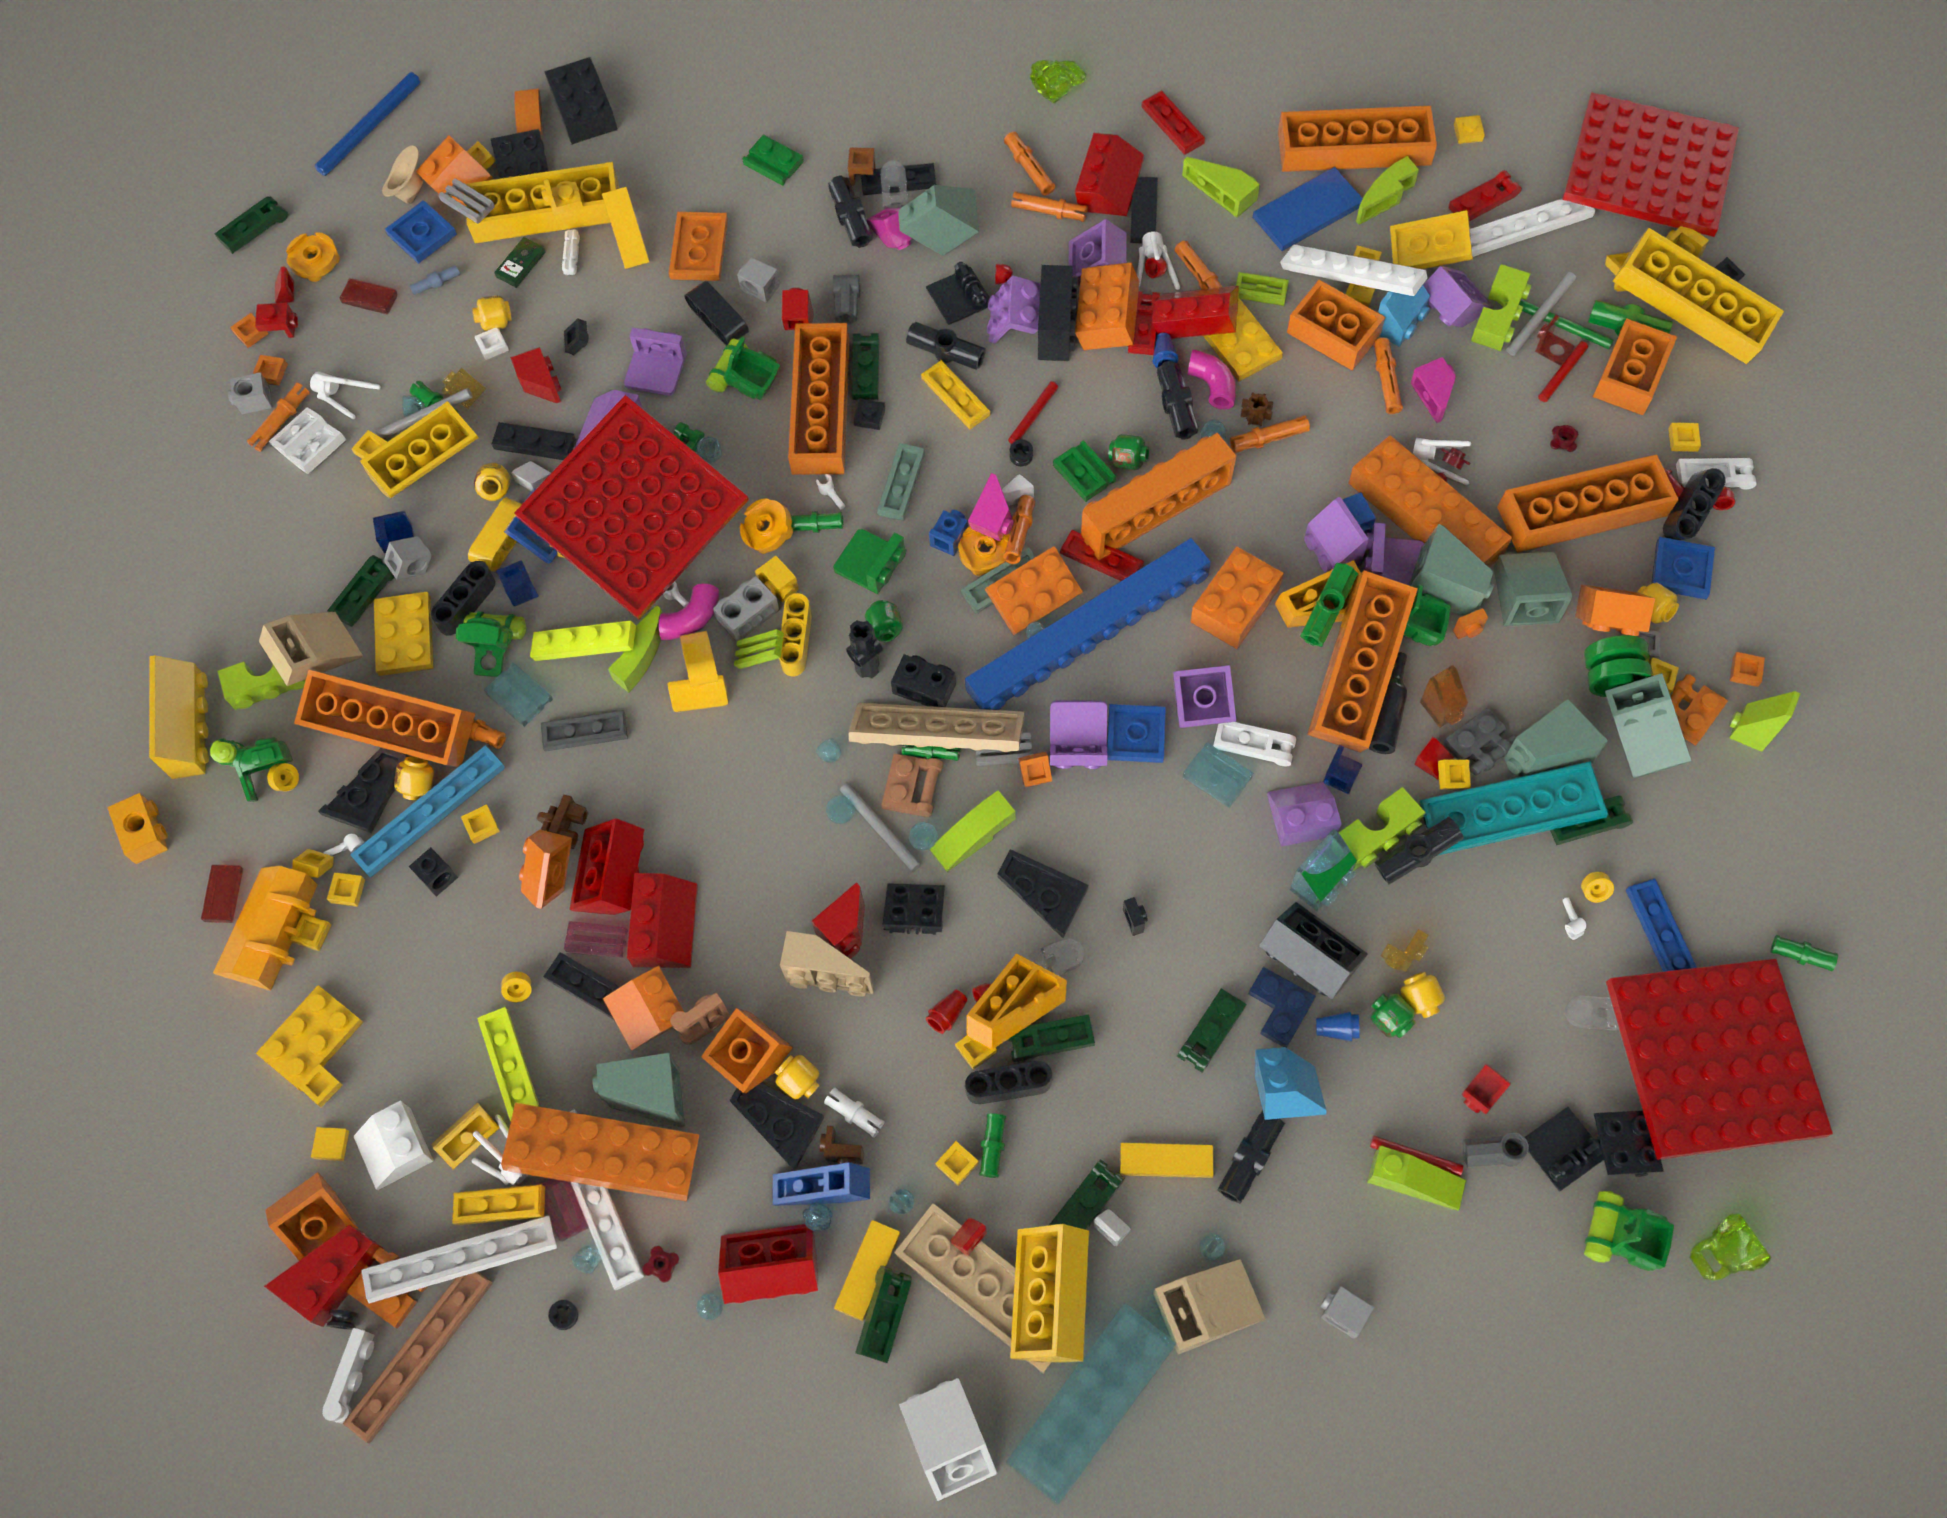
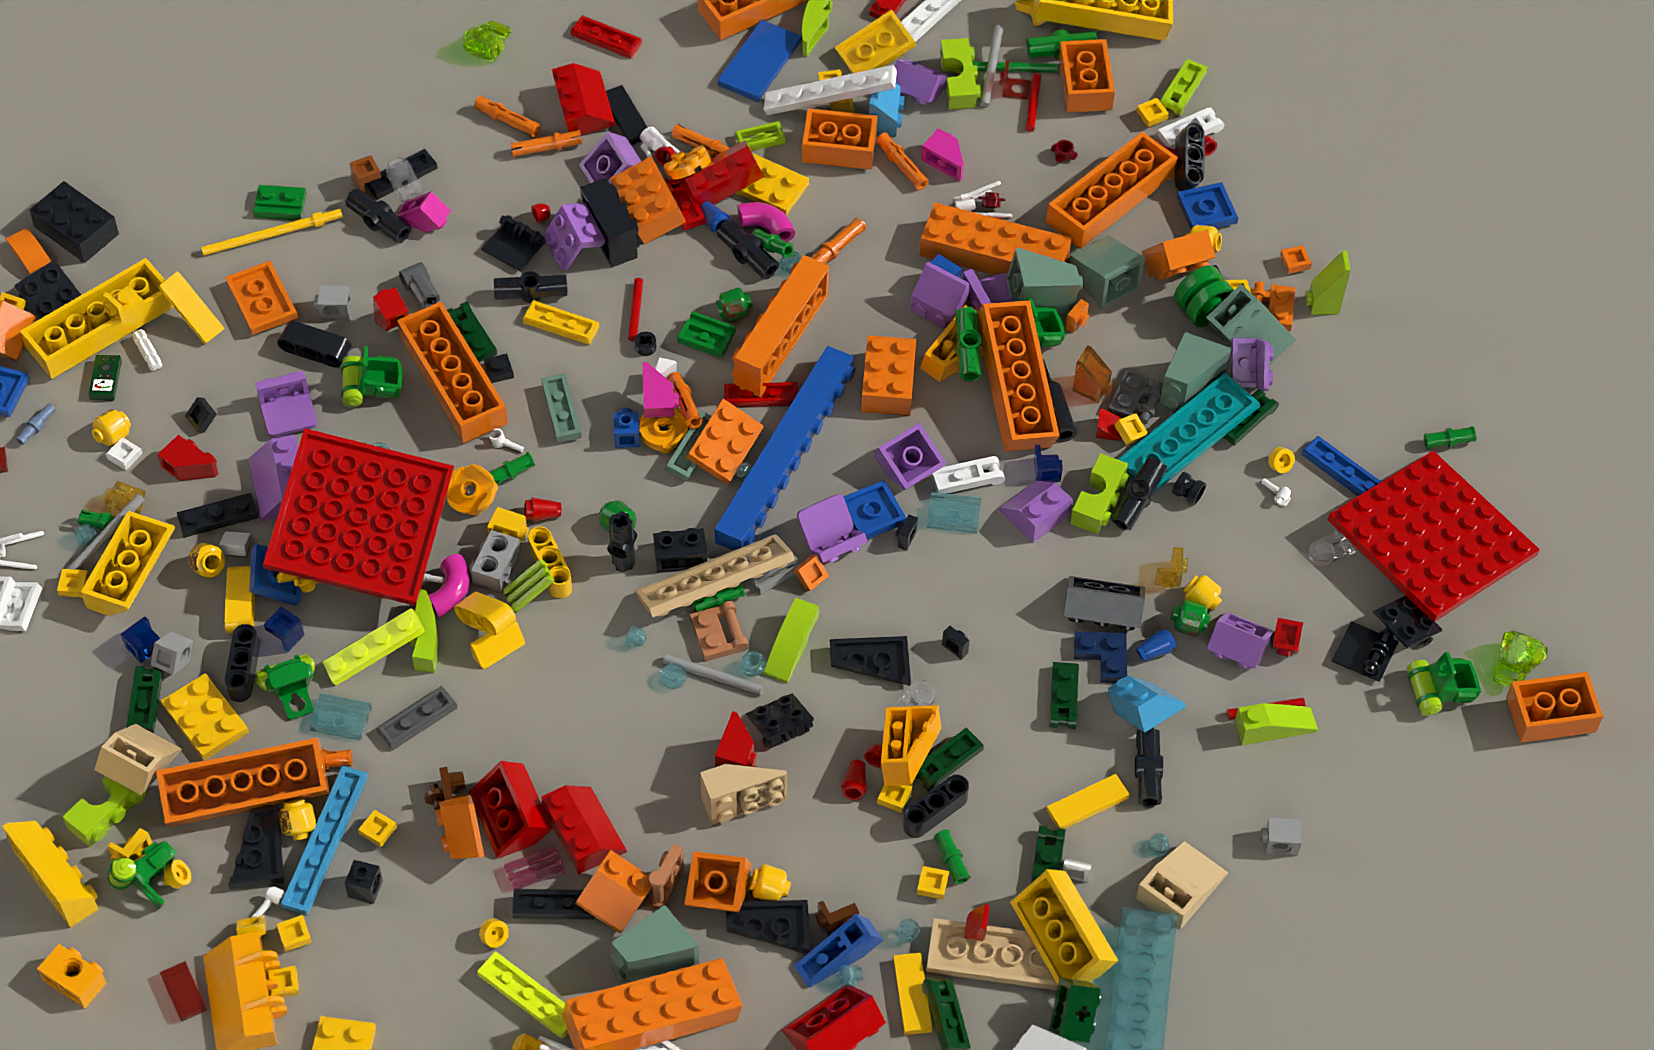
camera: 35 degrees left, 10 degrees down
(263, 729) = (132, 848): none -> yellow bracket
(453, 191) = (36, 339): light grey tile -> none
(795, 191) = (317, 219): none -> yellow bar
(820, 576) = (541, 509): none -> red cone
(854, 1112) = (829, 888): white pin -> none
(870, 559) = (575, 478): green bracket -> none
(941, 217) = (468, 187): sand green slope -> none
(1008, 1389) = (1075, 1010): none -> dark green brick
(1155, 773) = (906, 532): none -> black plate
(1167, 283) = (684, 164): none -> light orange plate
(1204, 405) = (773, 244): none -> green pin
(1223, 184) = (680, 68): lime slope -> none
(1256, 409) = (815, 229): reddish brown gear -> none
(1324, 872) = (1080, 541): clear light blue slope -> none
(1432, 1066) = (1239, 640): none -> medium lavender slope
(1477, 869) = (1189, 488): none -> black wheel
(1492, 1151) = (1318, 675): dark grey piece -> none
(1624, 763) = (1251, 362): none -> medium lavender bracket
(1736, 423) = (1184, 86): none -> lime plate
(1739, 1330) = (1554, 707): none -> orange brick

